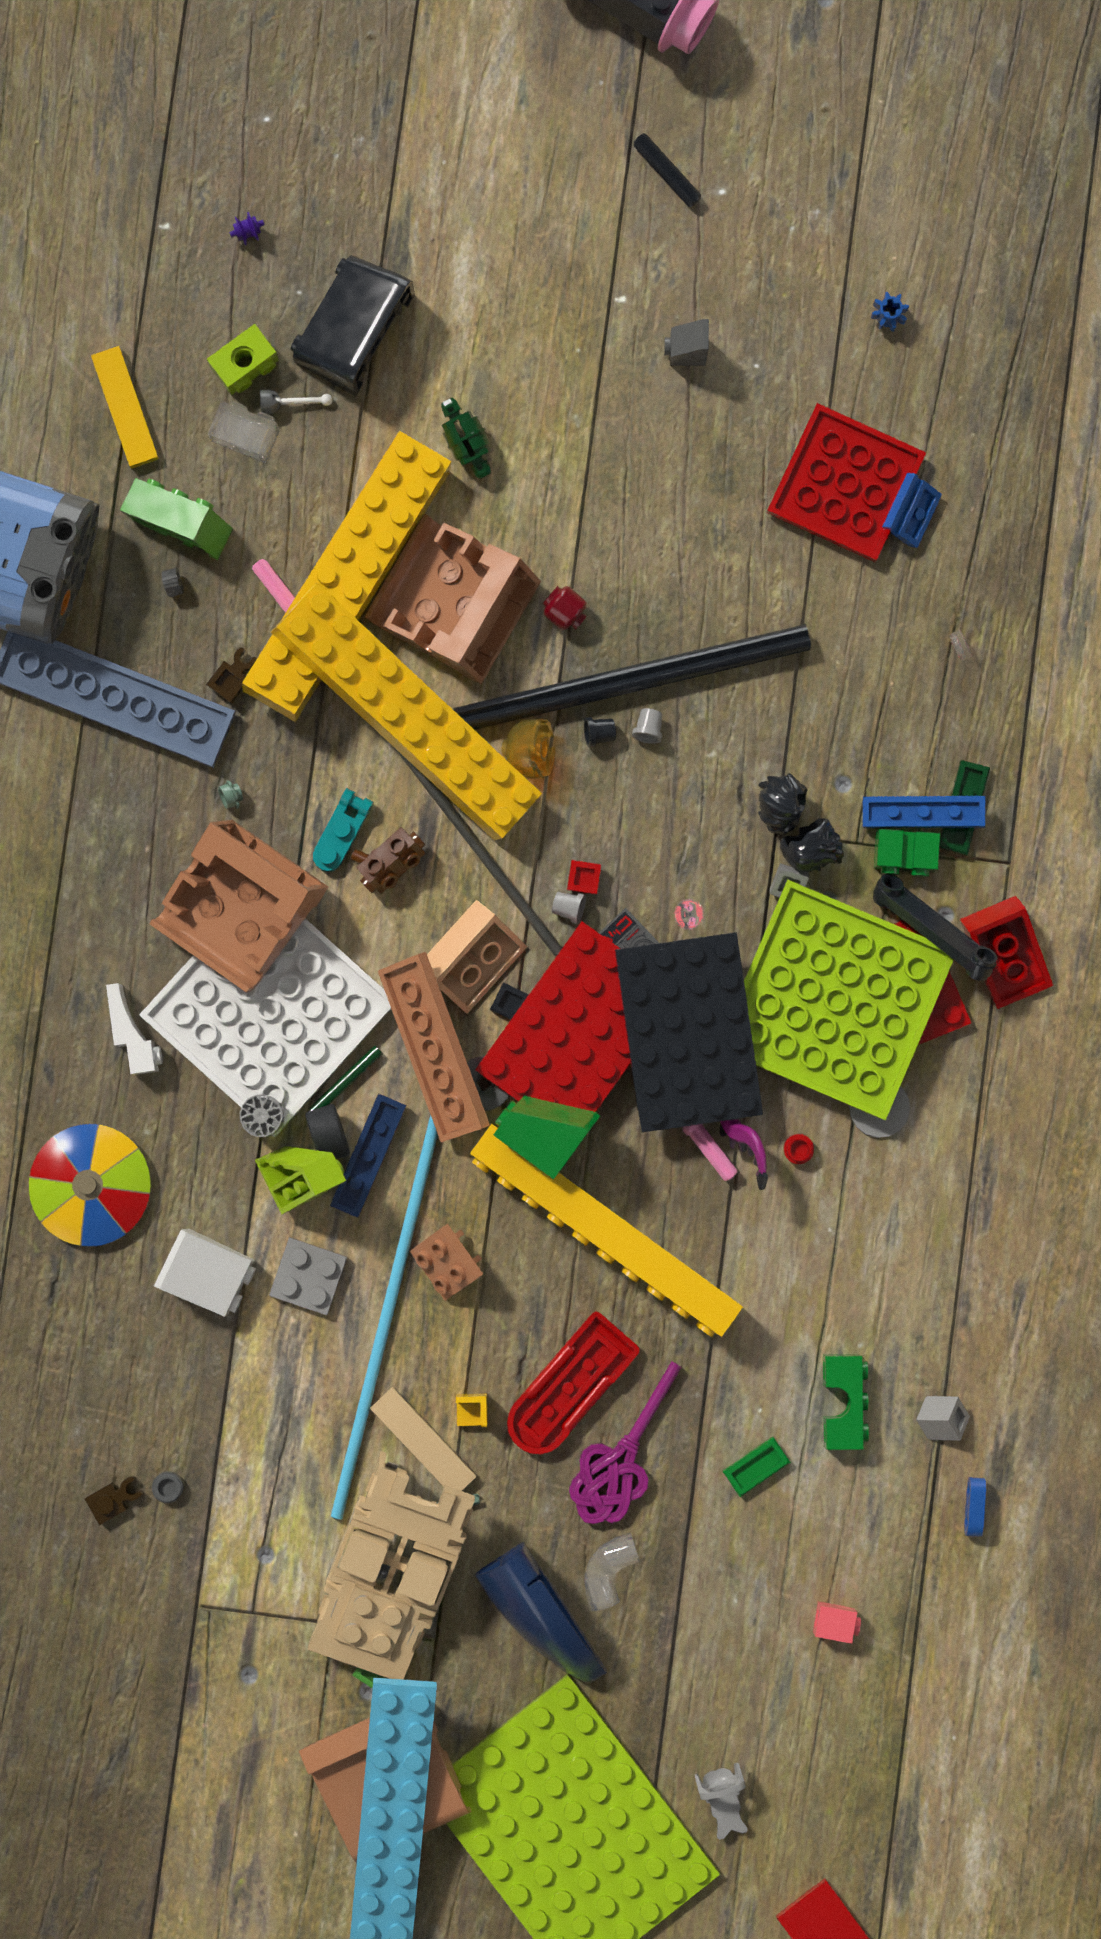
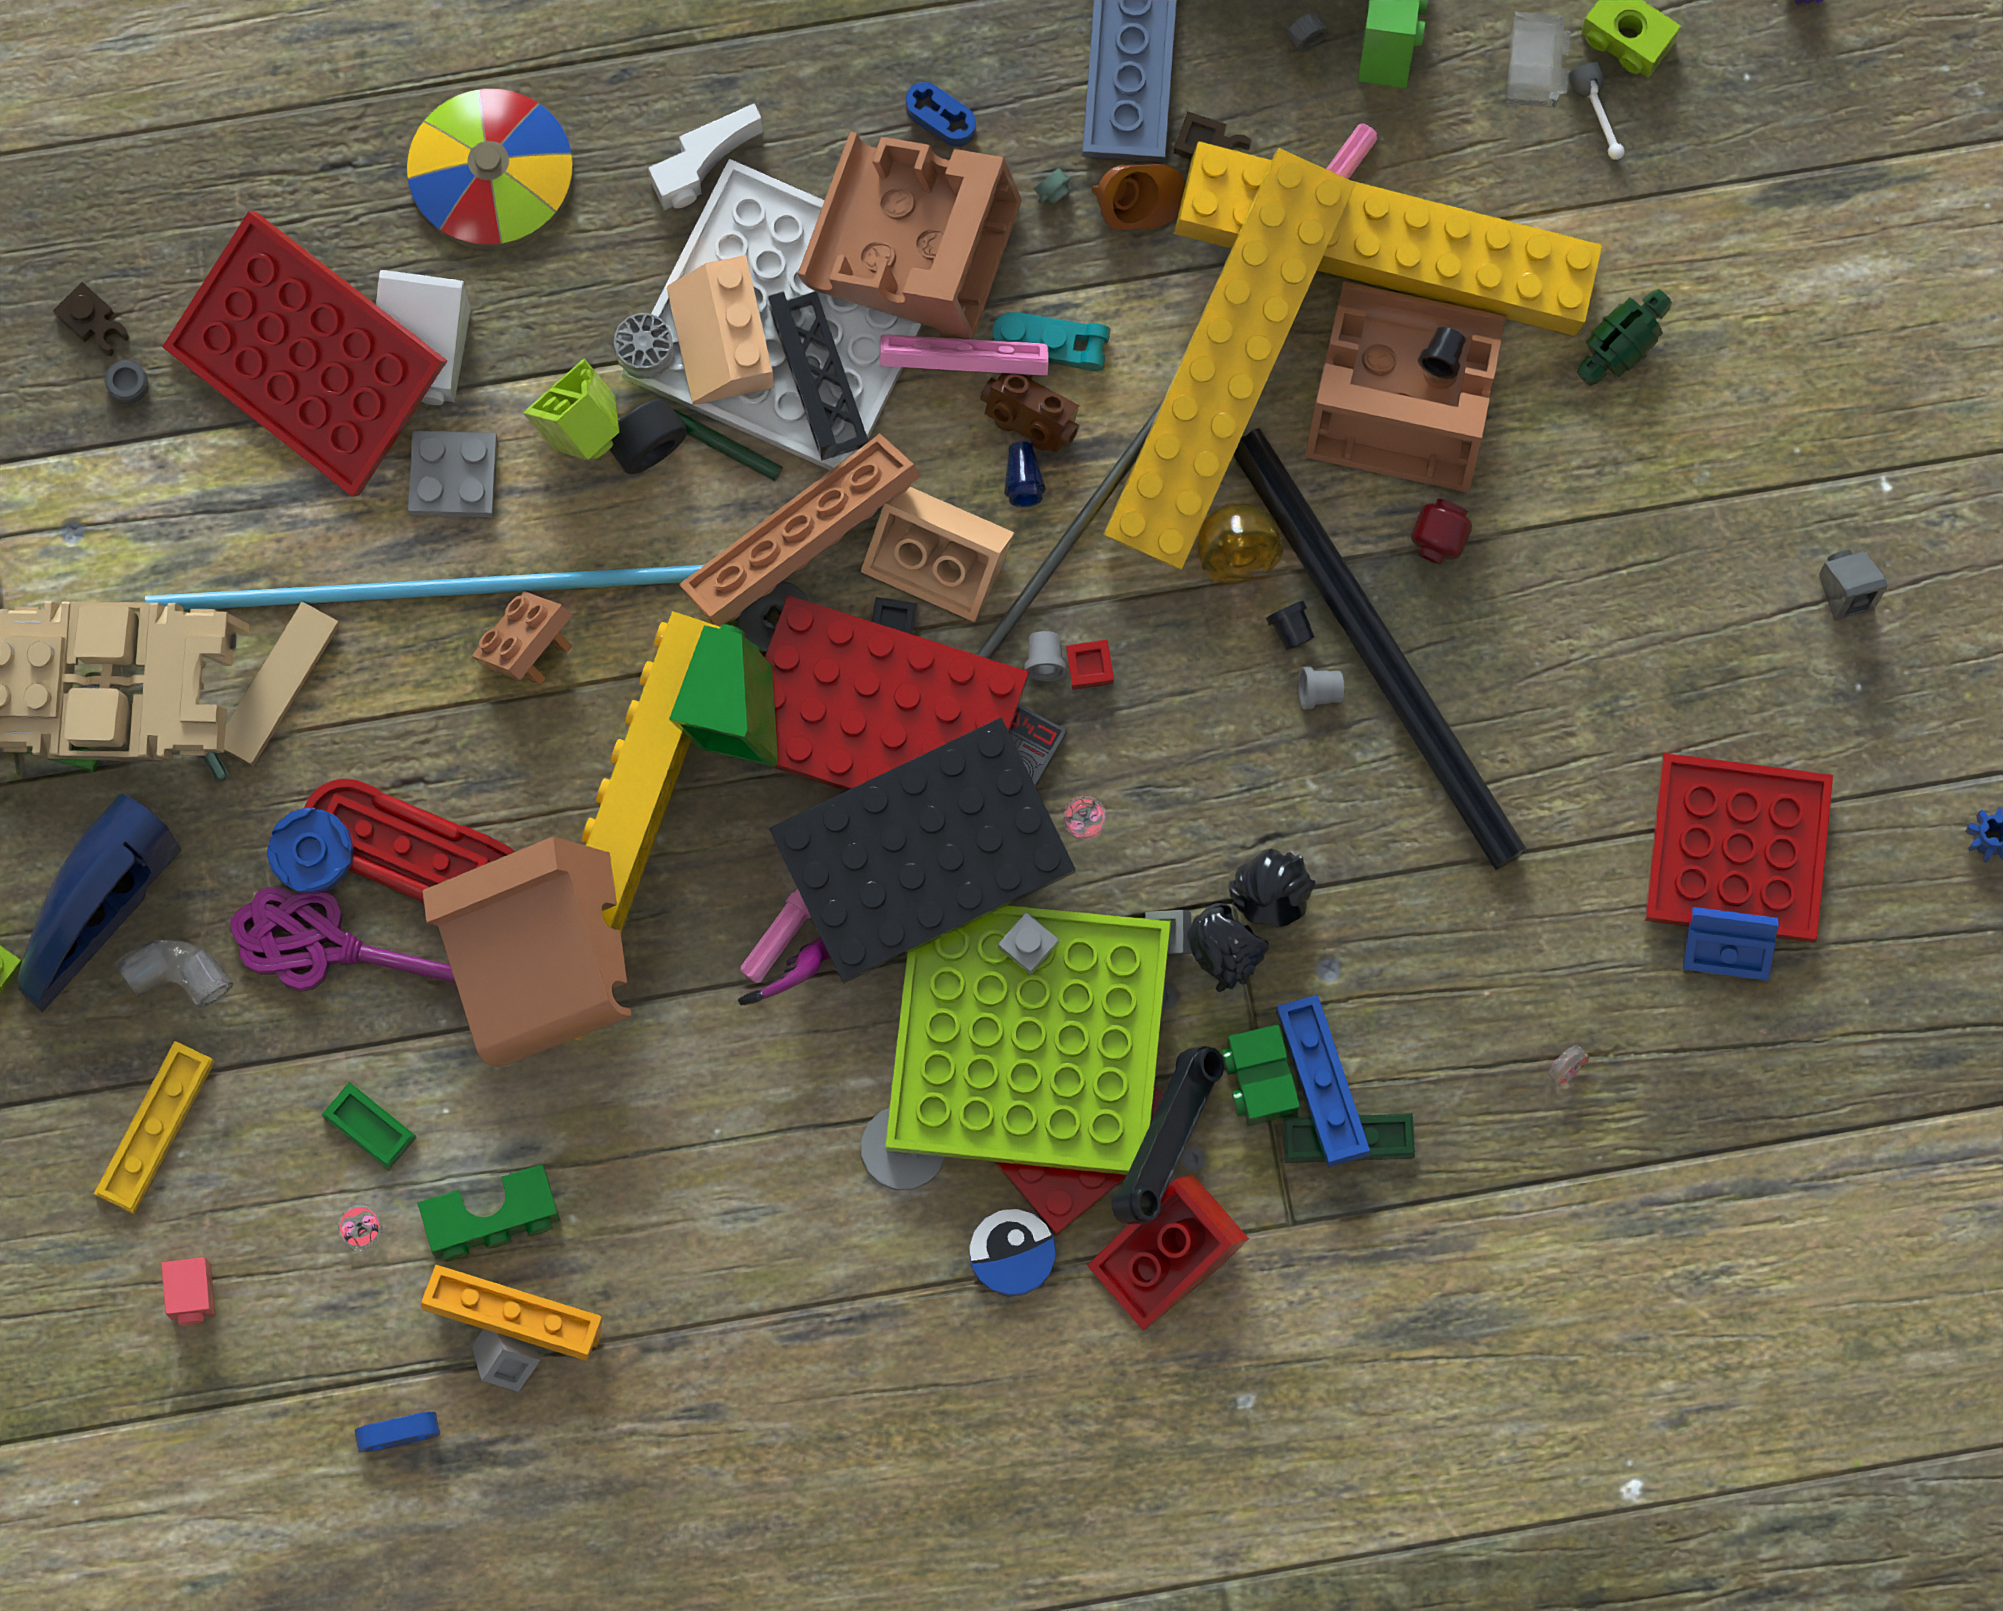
camera: 70 degrees right, 10 degrees down
(145, 851) = (935, 121): none -> blue beam
(193, 1356) = (304, 353): none -> red plate
(258, 737) = (1140, 196): none -> dark orange piece
(268, 1059) = (720, 331): none -> light nougat slope
(319, 1011) = (803, 374): none -> black fence
(339, 895) = (963, 354): none -> bright pink tile
(352, 322) = (1728, 147): black windscreen -> none
(368, 1155) = (634, 500): dark blue plate -> none
(434, 880) = (1023, 476): none -> clear blue cone
(441, 564) = (1443, 353): none -> black piece
(472, 1409) = (338, 732): yellow panel -> none
(554, 1453) = (310, 850): none -> blue tile
(686, 1320) = (532, 947): none -> nougat panel
(712, 1614) = (154, 1127): none -> yellow tile
(775, 980) = (1028, 943): none -> light grey plate
(798, 1149) = (813, 1054): red plate -> none
(825, 1492) = (360, 1227): none -> tile
(922, 1407) = (512, 1313): none -> light orange fence
(974, 1056) = (1012, 1252): none -> tile

